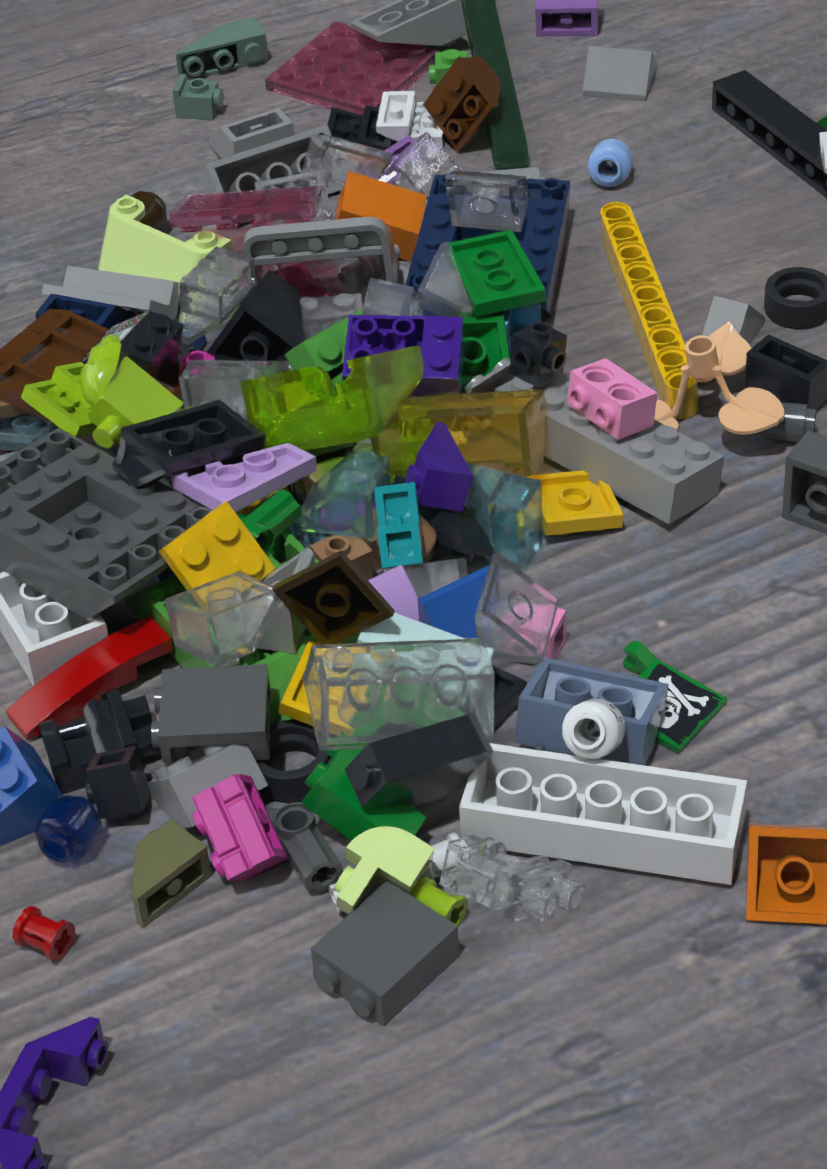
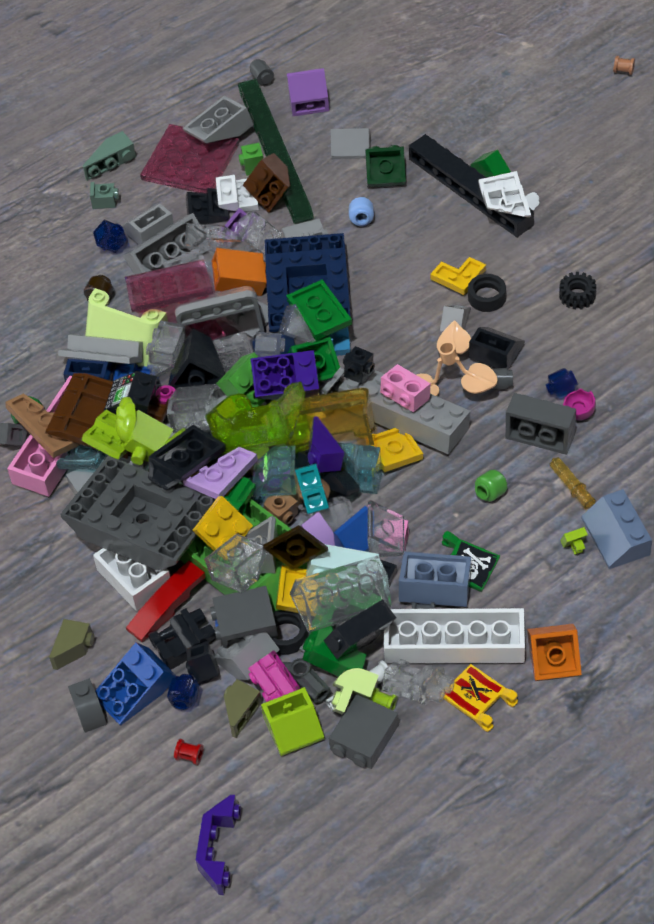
camera: 10 degrees left, 10 degrees up
(186, 147) = (109, 236): none -> clear blue brick
(252, 910) = (292, 721): none -> lime slope
(487, 200) = (303, 259): clear slope -> none
(580, 735) = (436, 597): white head -> none
(624, 922) = (476, 693): none -> yellow flag
(647, 305) = (404, 310): yellow beam -> none
(668, 108) = (385, 166): none -> dark green plate
(735, 581) = (490, 485): none -> bright green head
(752, 272) = (458, 278): none -> yellow plate

